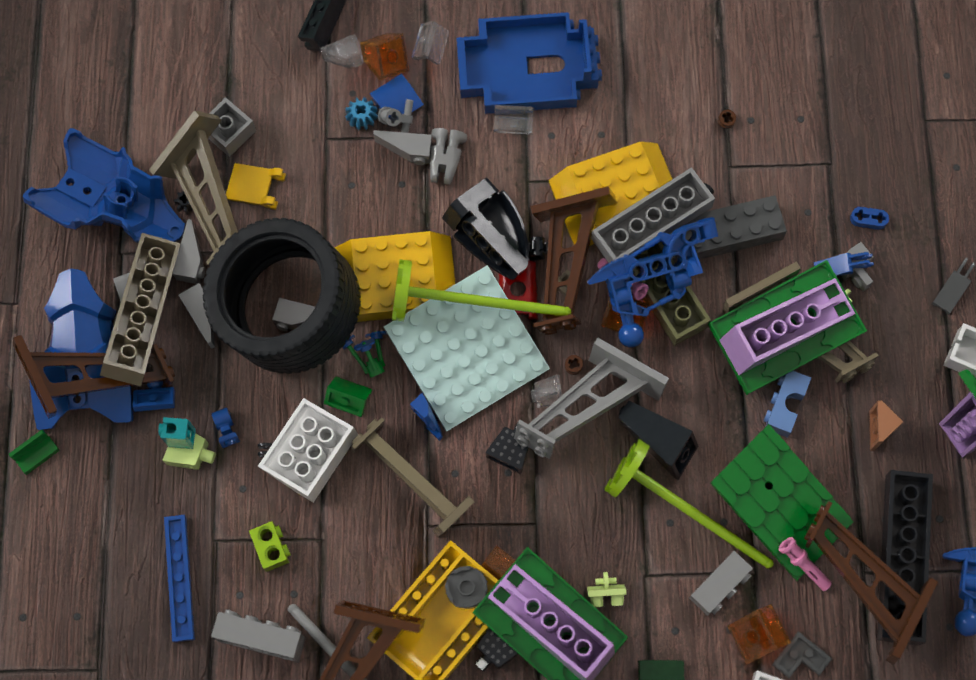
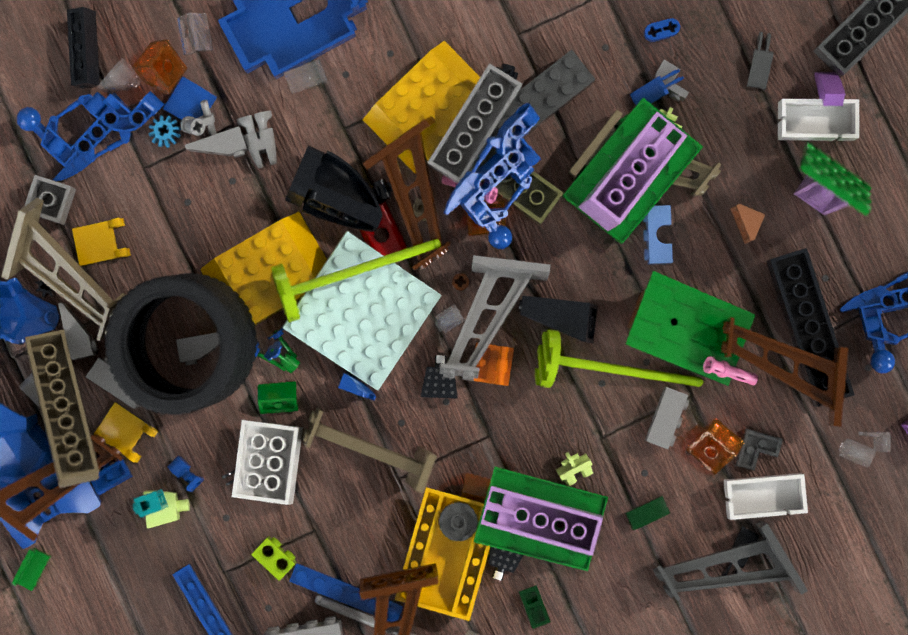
camera: 30 degrees left, 15 degrees up
(189, 363) = (124, 430): none -> yellow flag
(267, 99) = (72, 156): none -> blue piece
(317, 608) = (340, 591): none -> blue plate
(571, 456) = (495, 365): none -> orange plate

